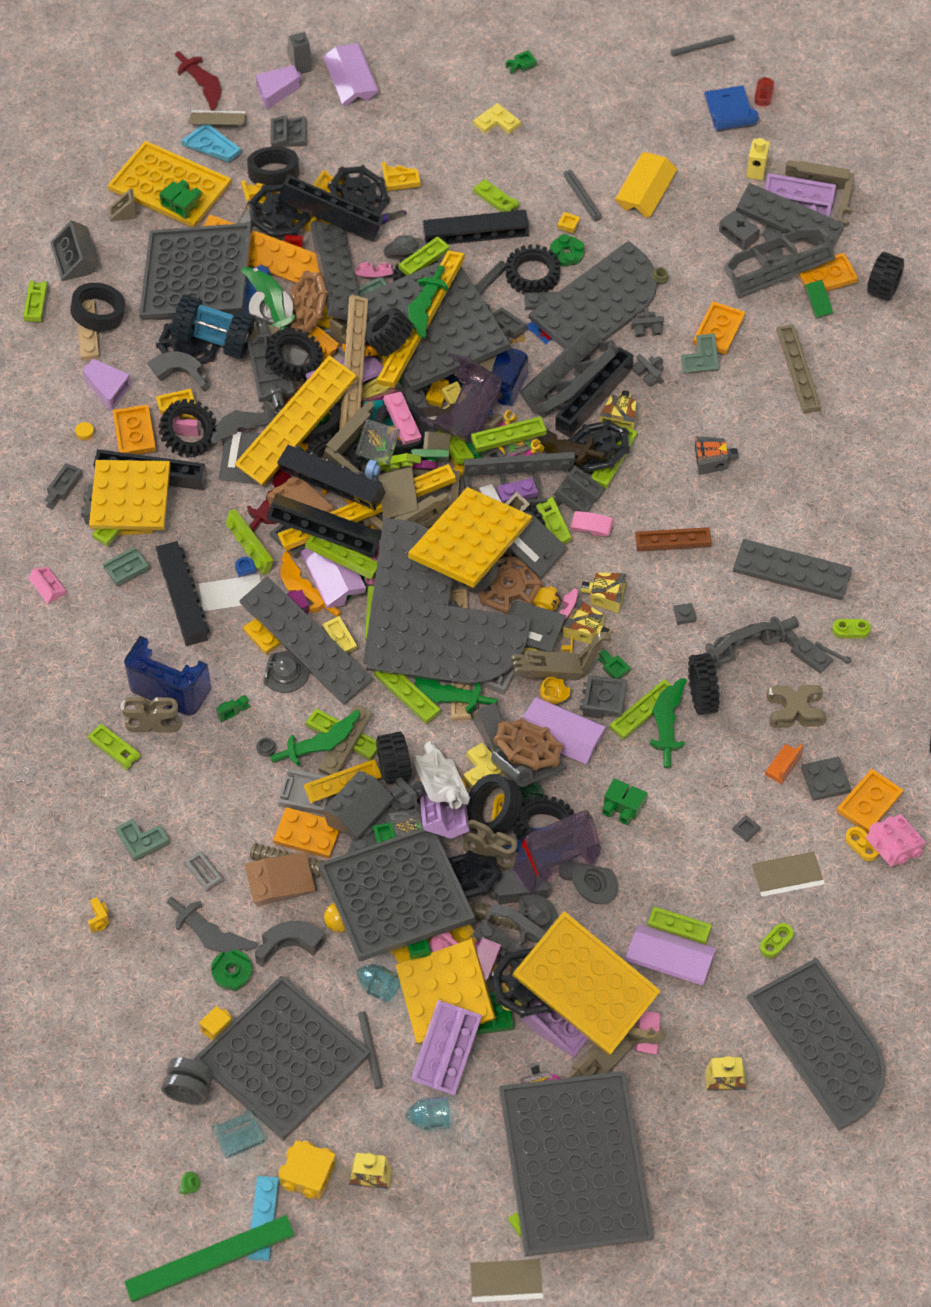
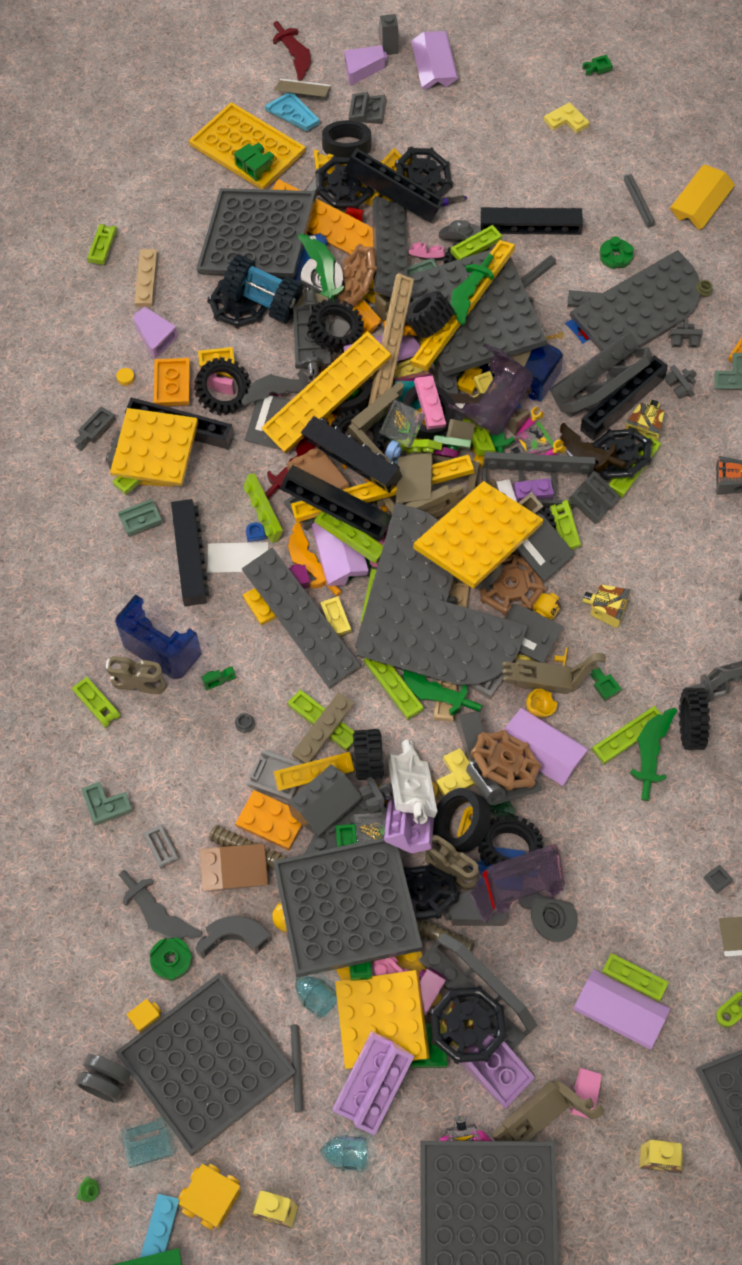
camera: 10 degrees right, 5 degrees up
(47, 584) = (62, 525): bright pink slope -> none
(74, 251) = (146, 200): dark grey slope -> none
(96, 321) = (160, 241): black tyre -> none
(101, 920) = (51, 874): yellow bracket -> none
(123, 208) = (200, 164): dark tan slope -> none
(171, 362) = (217, 319): dark grey arch -> none
(285, 673) = (276, 647): dark grey hat -> none
(319, 742) = (297, 727): green sword -> none
(400, 177) = (466, 163): yellow wing -> none
(495, 196) = (554, 192): lime plate -> none
(508, 434) = (532, 431): lime plate -> none
(509, 323) = (549, 318): dark grey plate -> none
(530, 254) = (580, 252): black tyre -> none
(537, 910) = (490, 945): dark grey hat -> none
(568, 222) = (621, 225): yellow plate -> none
(569, 602) = (568, 616): bright pink slope -> none
(584, 623) = (582, 636): torso -> none
(586, 983) = (528, 1038): yellow plate -> none
(594, 523) = (603, 531): bright pink slope -> none
(603, 696) = (589, 716): dark grey plate -> none
(624, 801) = (595, 831): green hips -> none
(673, 539) = (682, 558): dark orange plate -> none
(684, 613) = (683, 638): dark grey plate -> none

